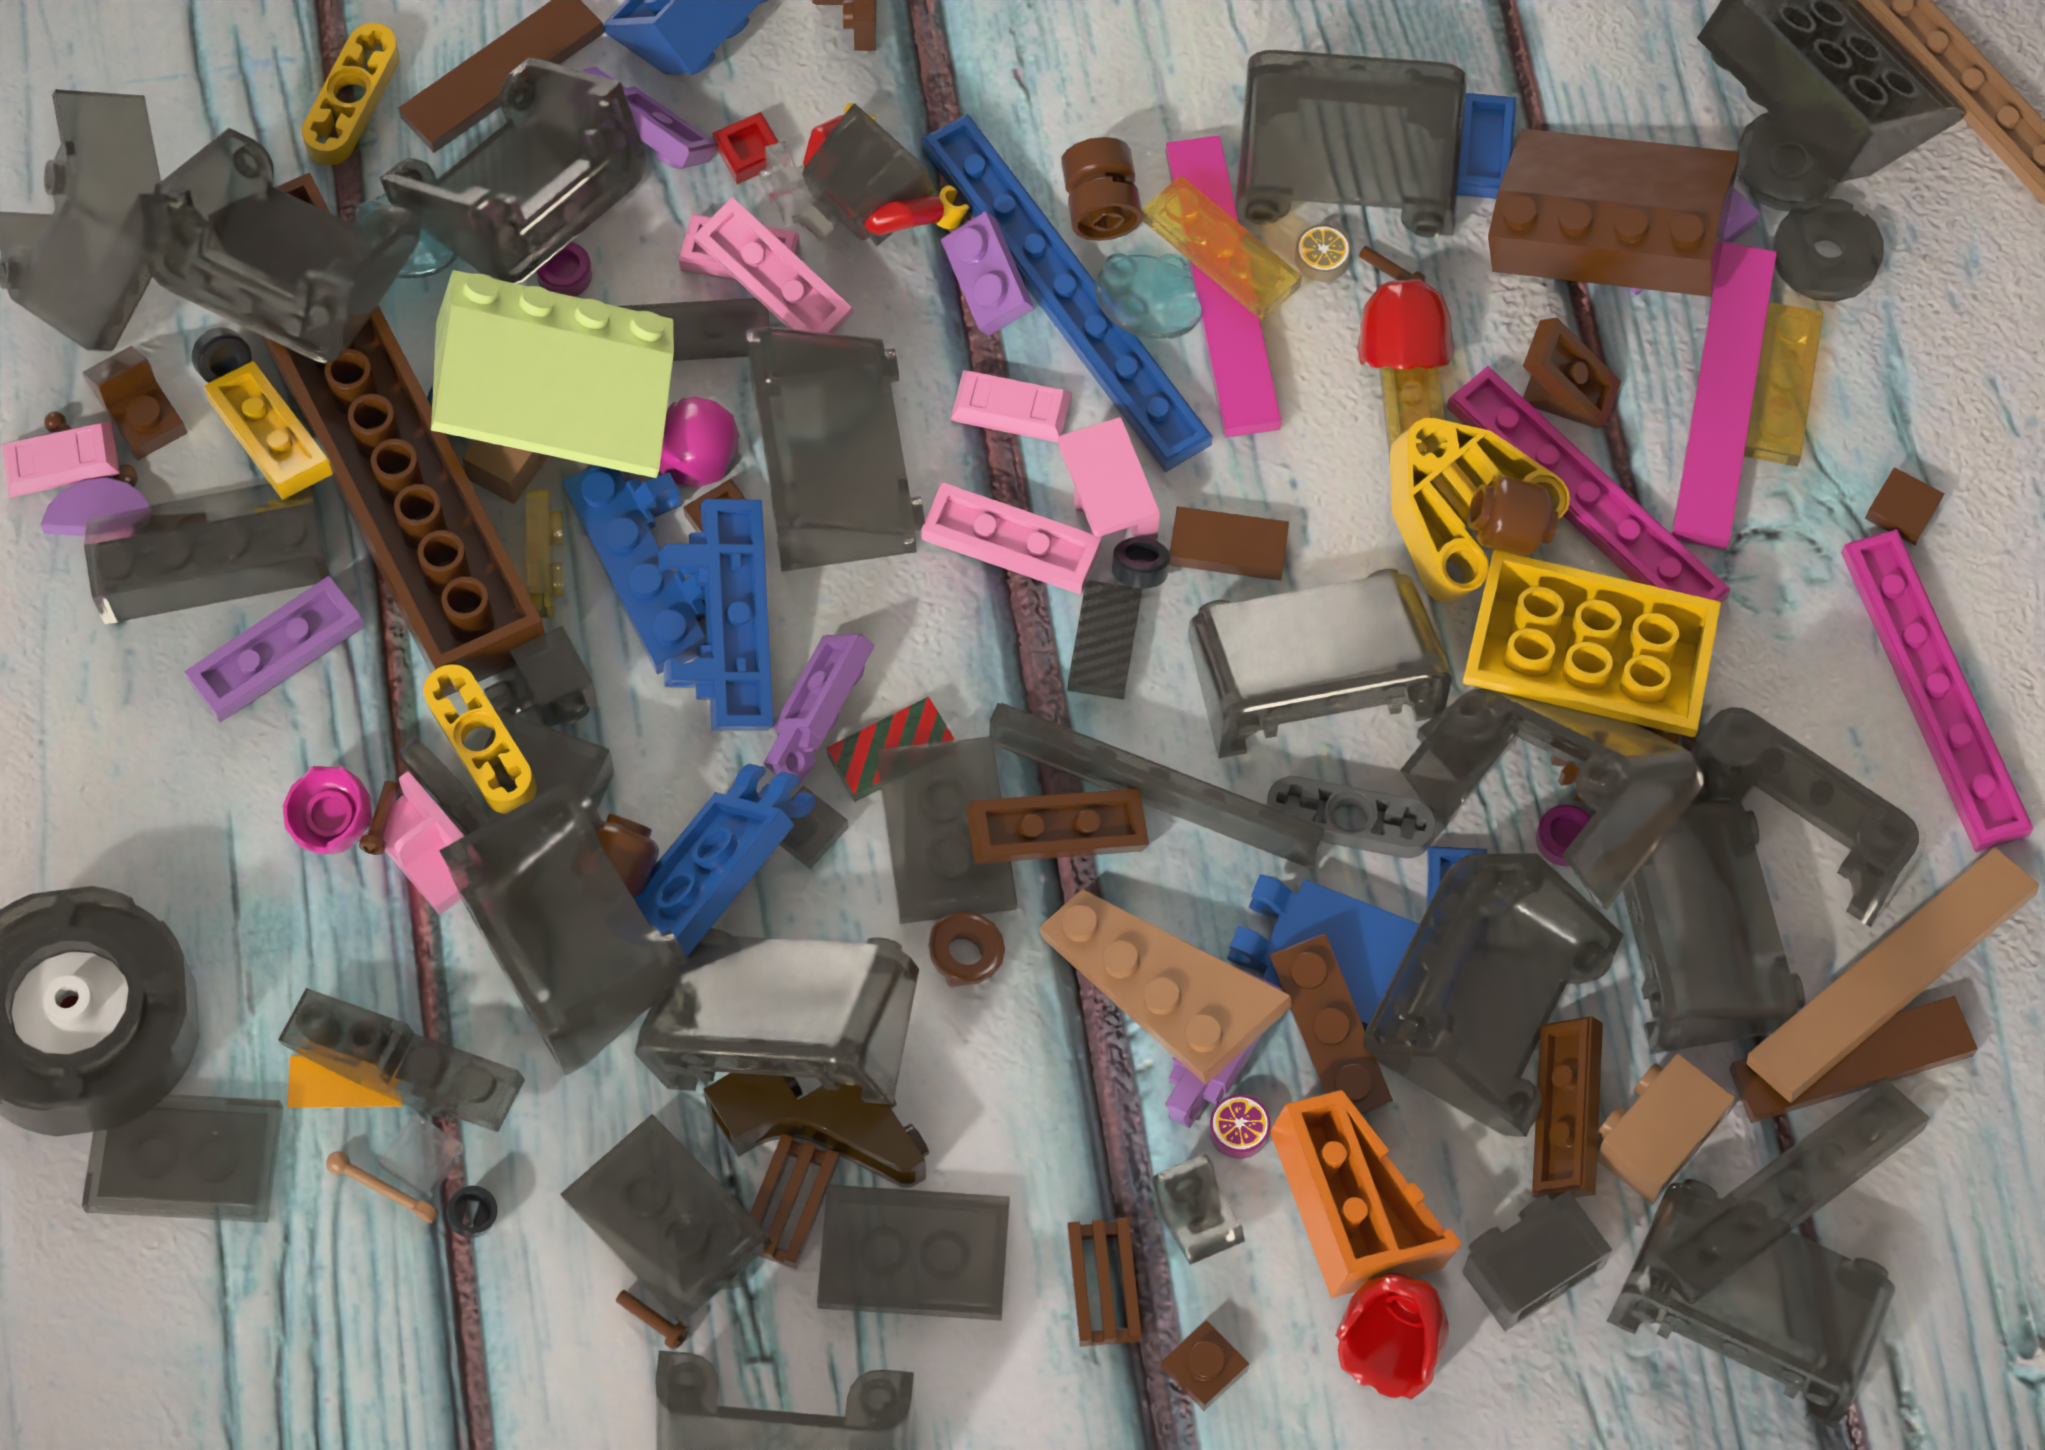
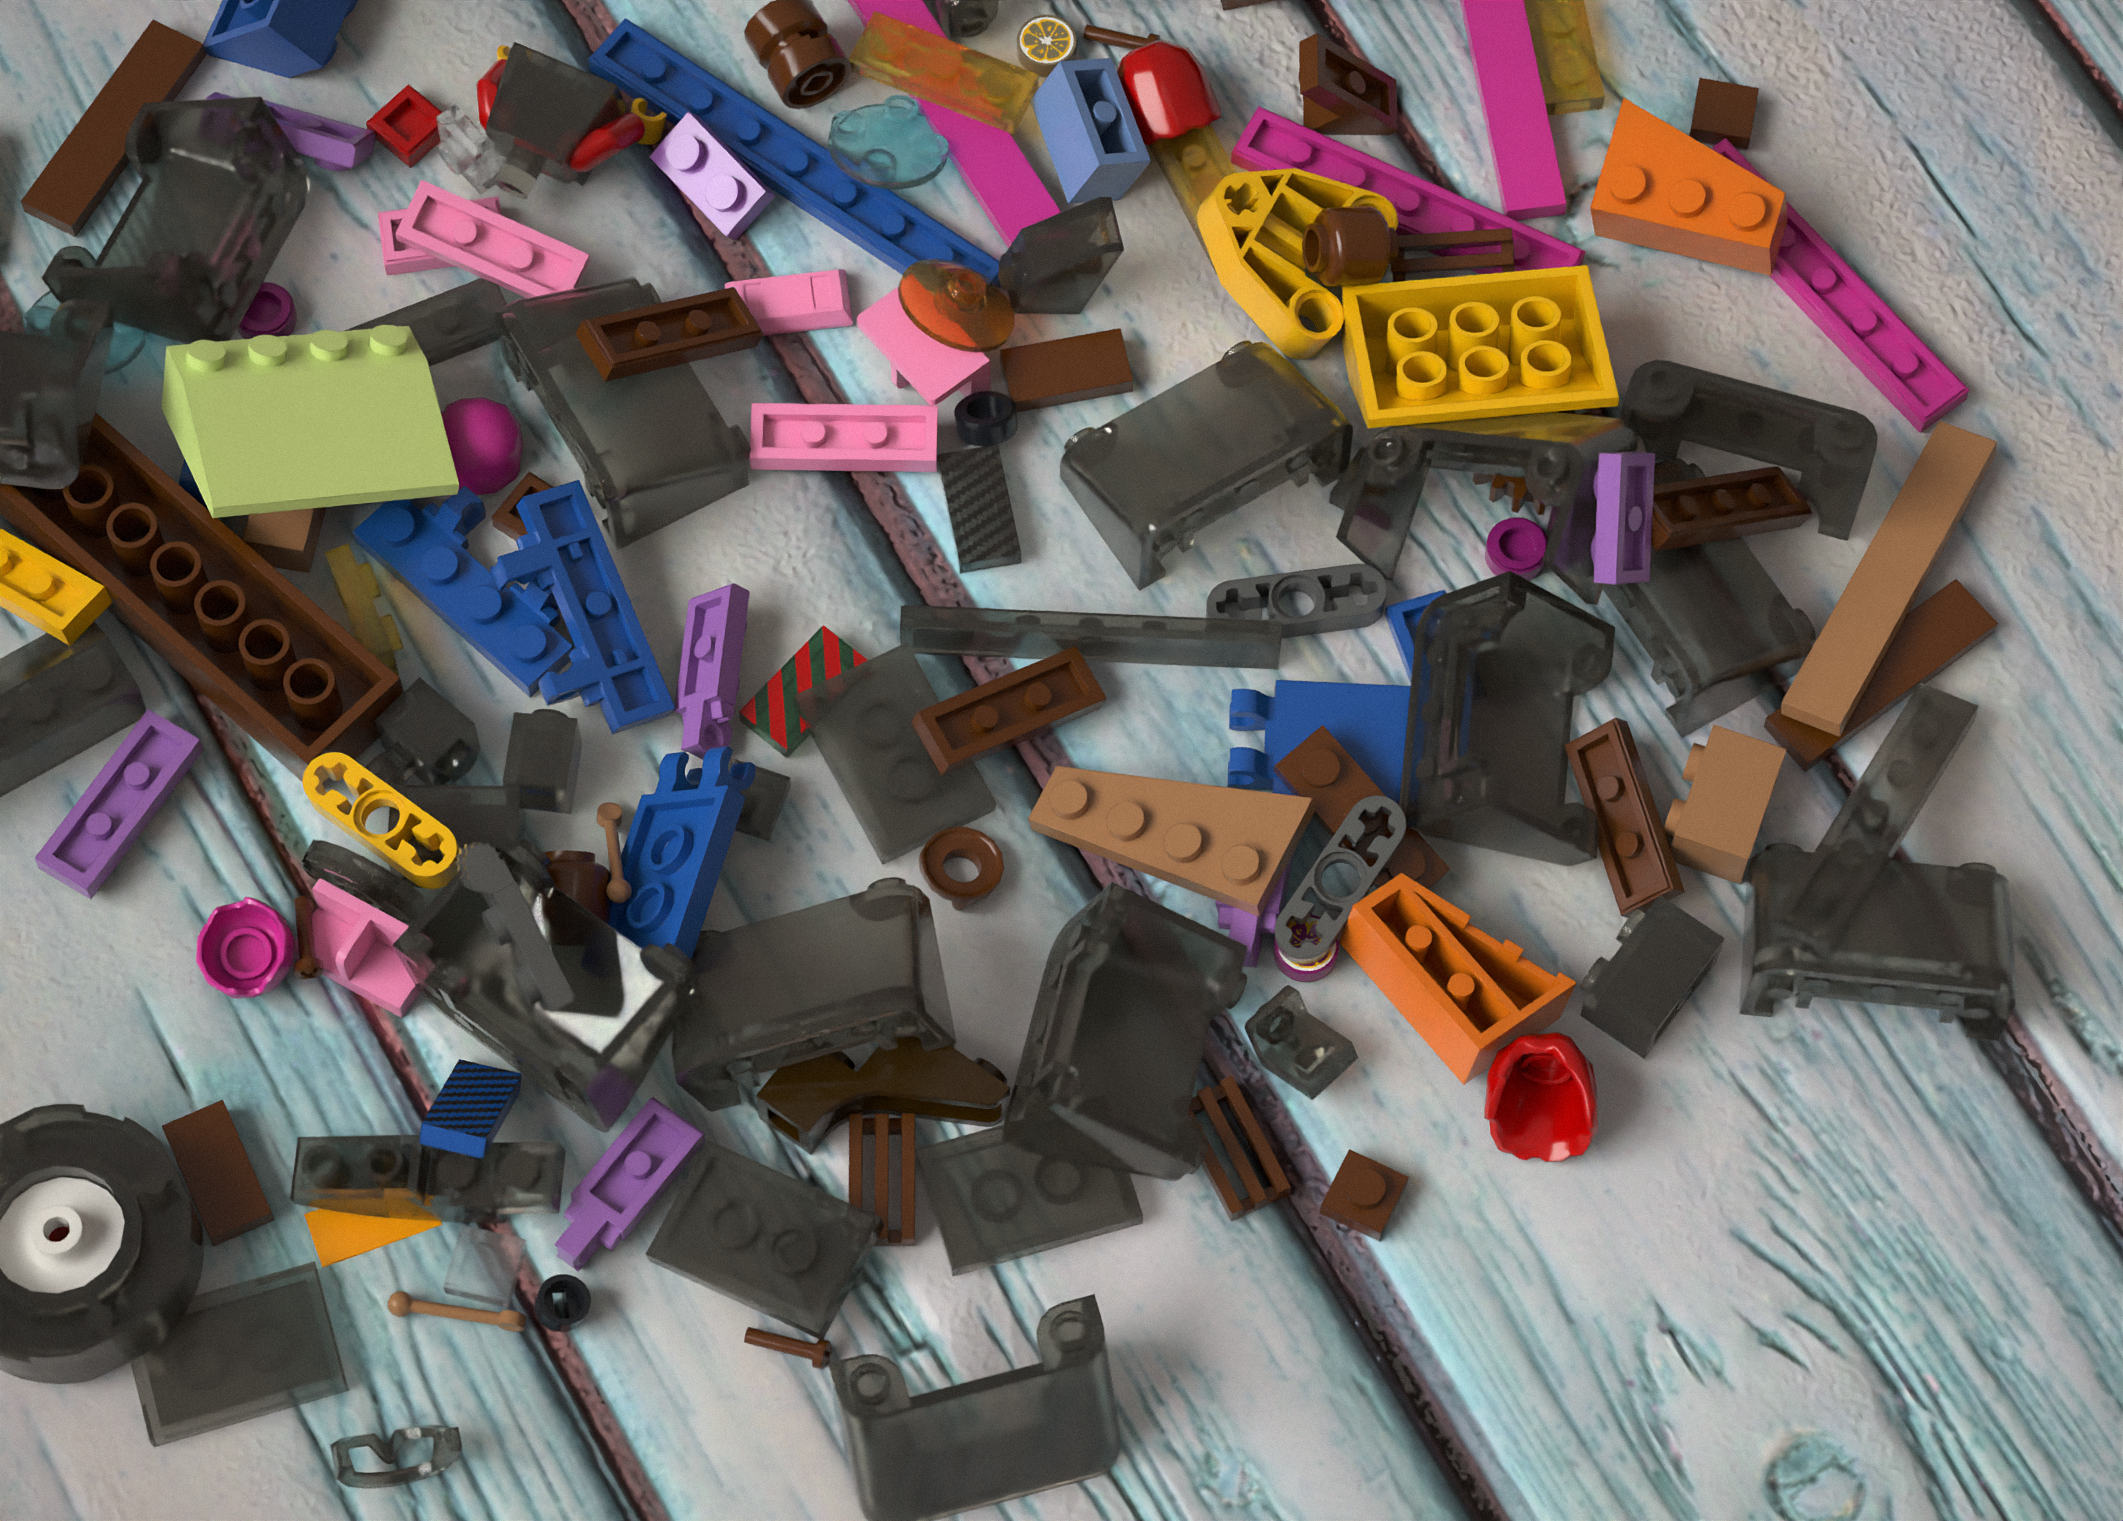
camera: 20 degrees left, 0 degrees up
(231, 995) = (218, 1173): none -> reddish brown tile
(319, 1309) = (446, 1451): none -> clear smoke helmet
(458, 1014) = (470, 1108): none -> blue tile
(546, 866) = (513, 923): none -> dark grey hinge
(569, 1125) = (627, 1181): none -> medium lavender hinge
(643, 732) = (544, 759): none -> clear smoke brick
(681, 802) = (610, 817): none -> medium nougat hinge
(889, 398) = (669, 334): none -> reddish brown tile
(1042, 1152) = (1123, 1038): none -> clear smoke windscreen
(1149, 455) = (956, 305): none -> clear orange dish
(1256, 444) = (1061, 259): none -> clear smoke slope
(1327, 339) = (1090, 130): none -> medium blue brick
(1332, 1061) = (1354, 831): none -> dark grey beam
(1614, 540) = (1453, 240): none -> reddish brown tile
(1653, 840) = (1623, 517): none -> medium lavender plate
(1752, 858) = (1725, 508): none -> reddish brown tile
(1835, 569) = (1685, 197): none -> orange wedge

